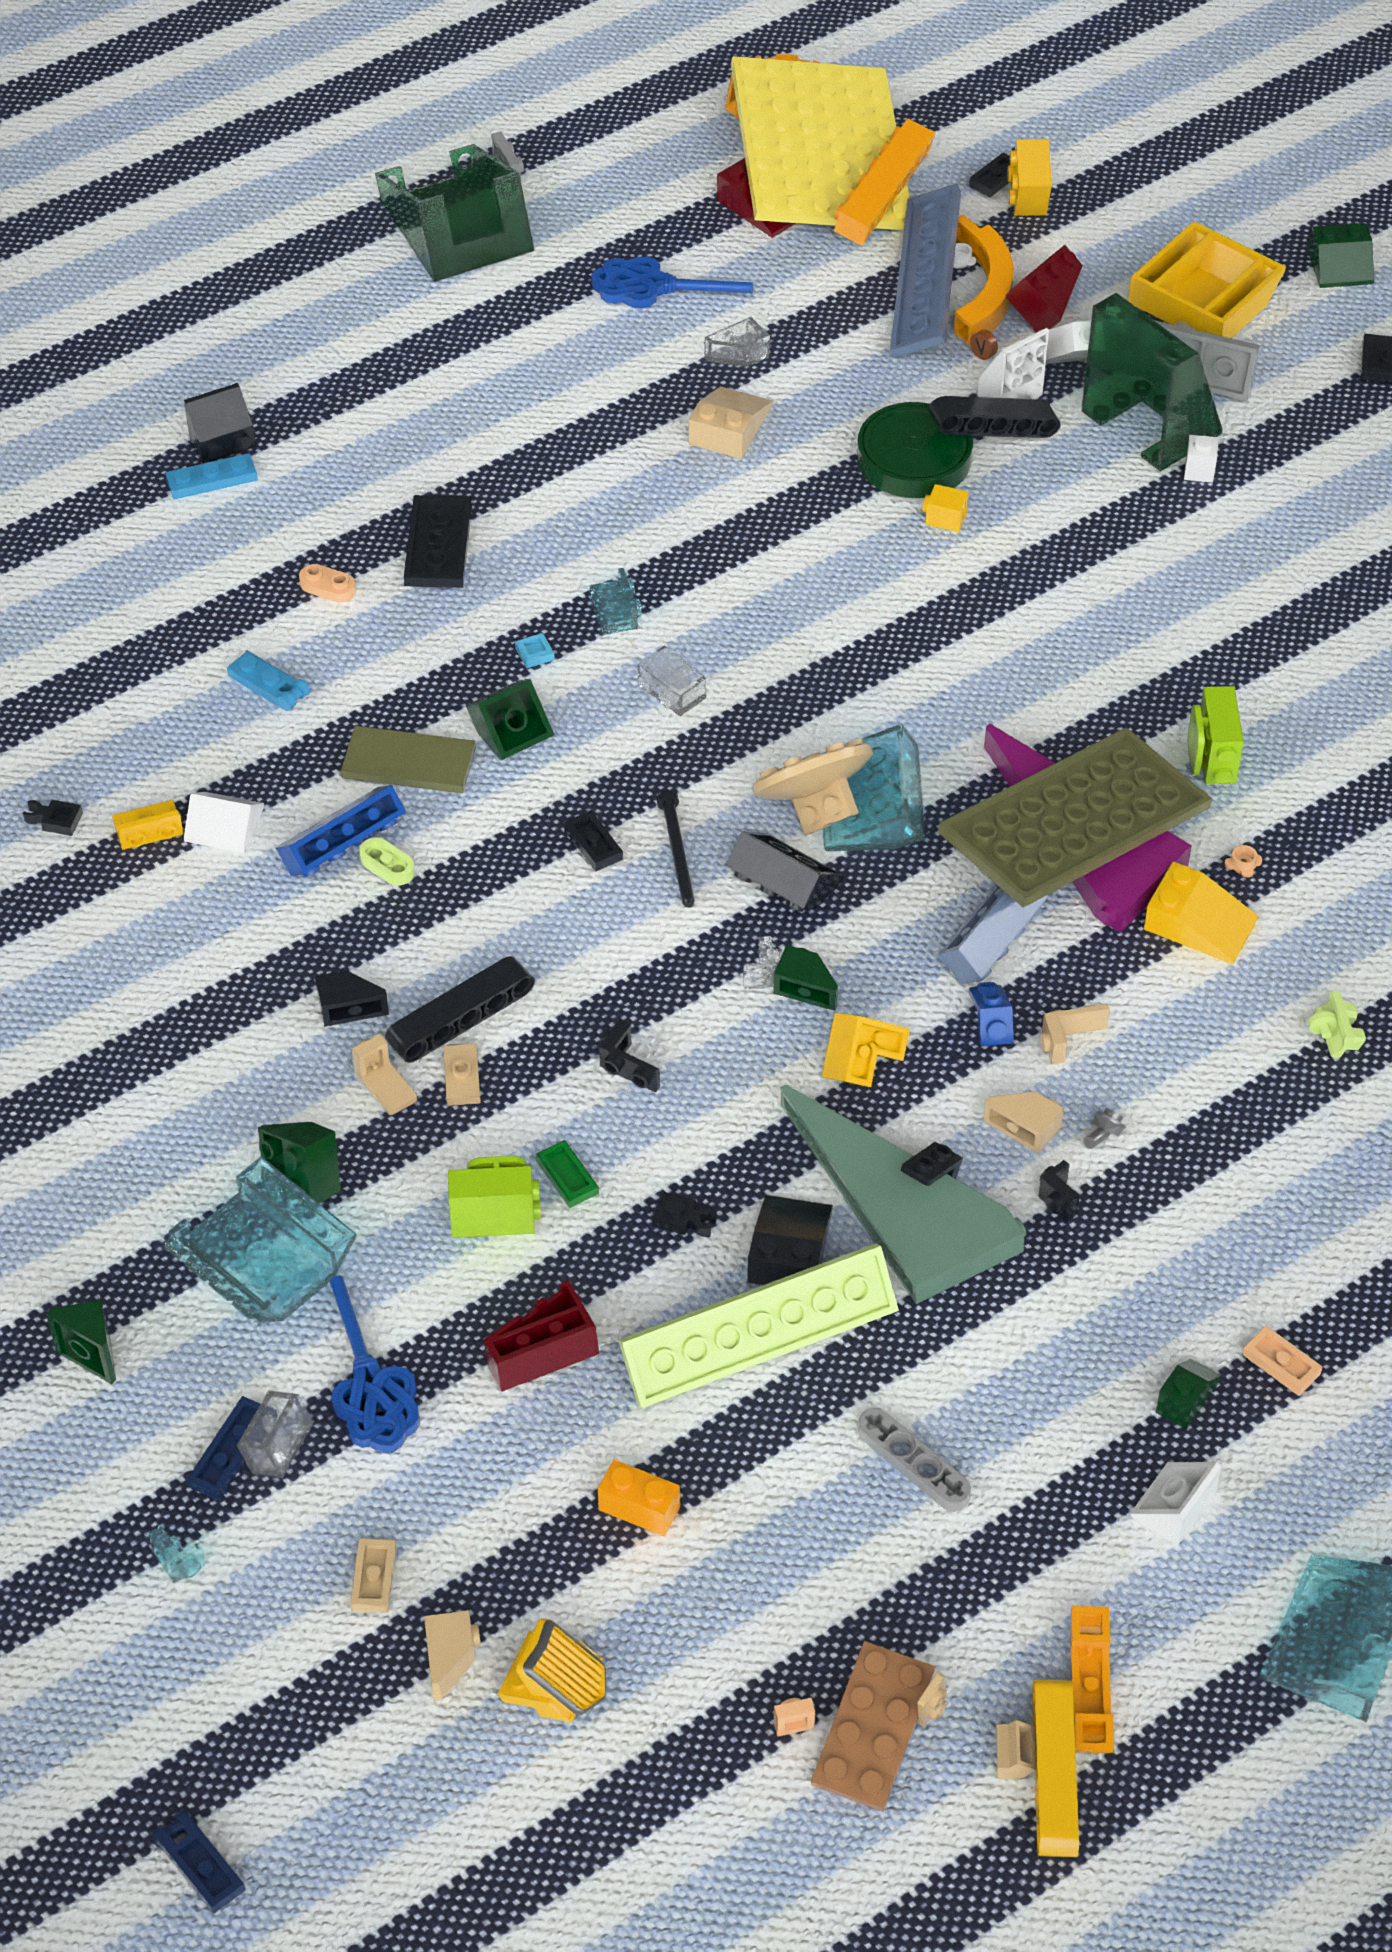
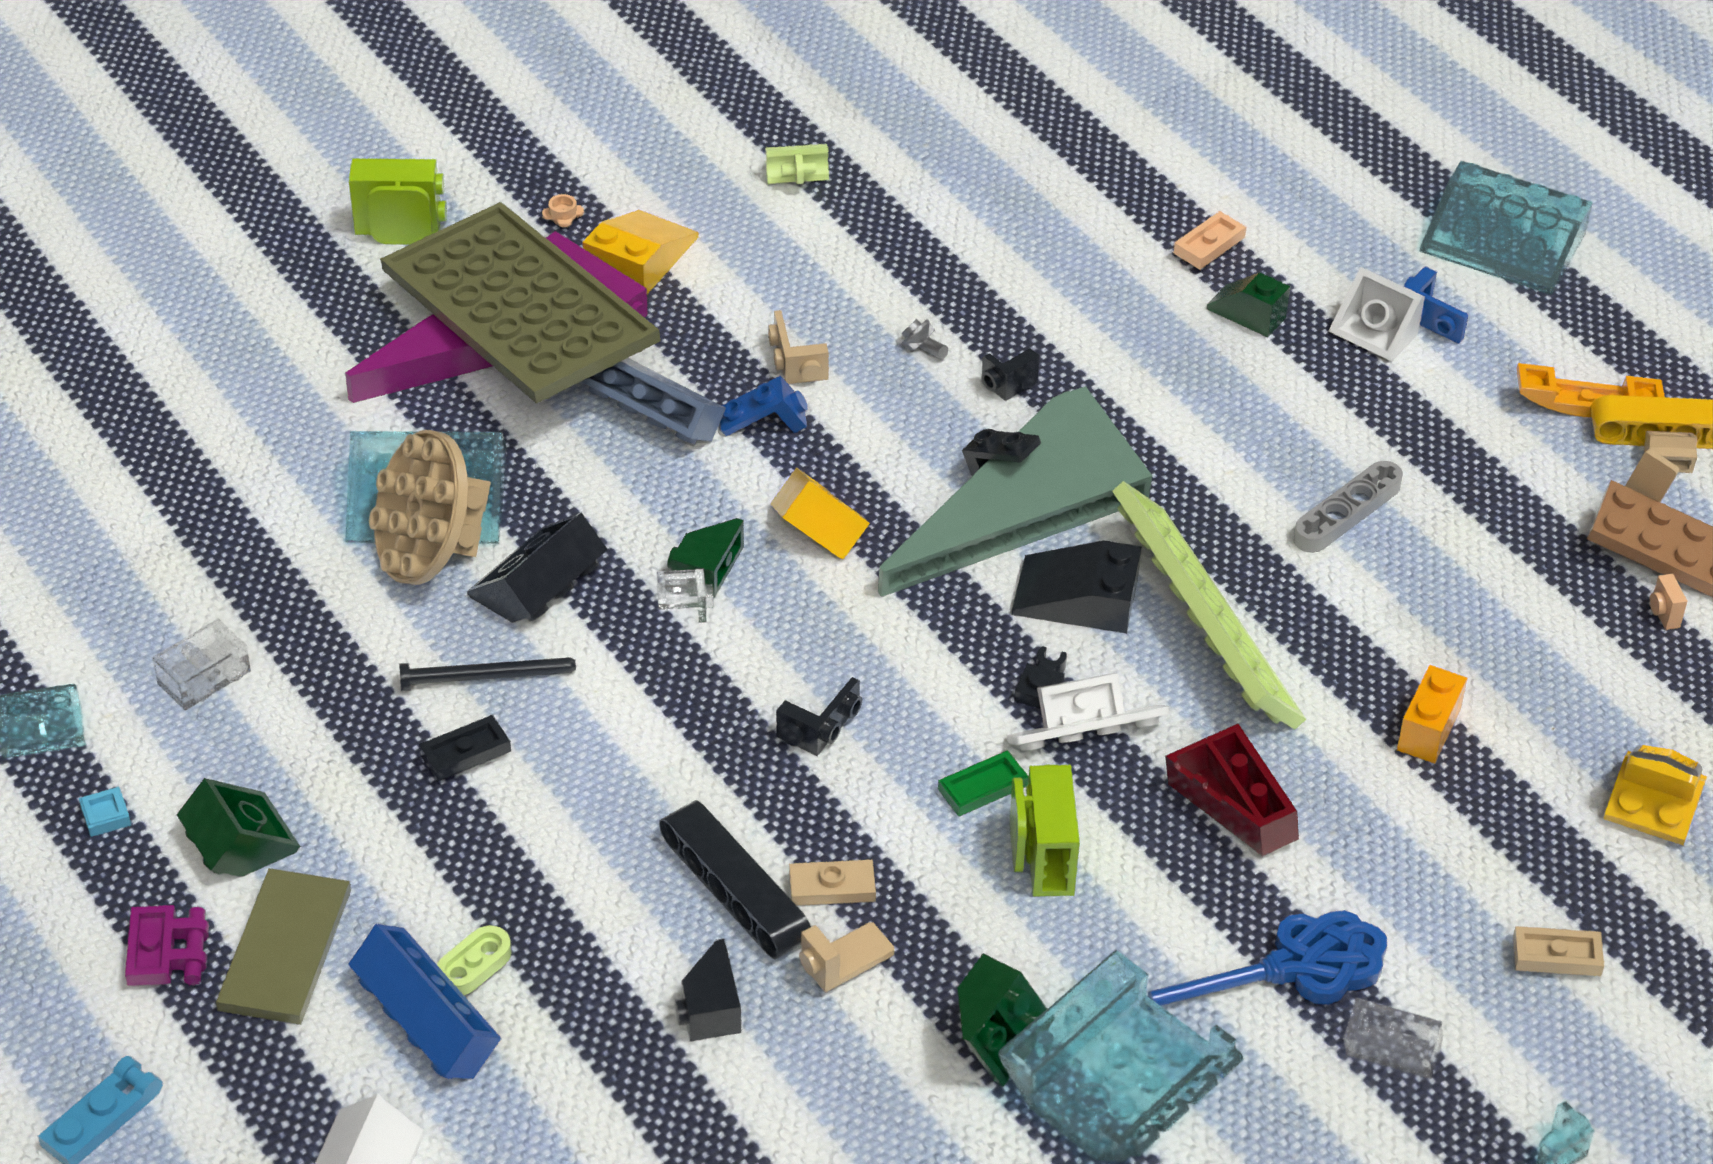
camera: 90 degrees left, 5 degrees down
(222, 1457) = (1405, 1095): dark blue plate -> none
(405, 687) = (152, 949): none -> magenta plate
(450, 1649) = (1646, 879): tan slope -> none
(637, 1238) = (1083, 707): none -> white bracket
(1025, 1117) = (917, 390): tan slope -> none
(1214, 1532) = (1436, 314): none -> blue bracket

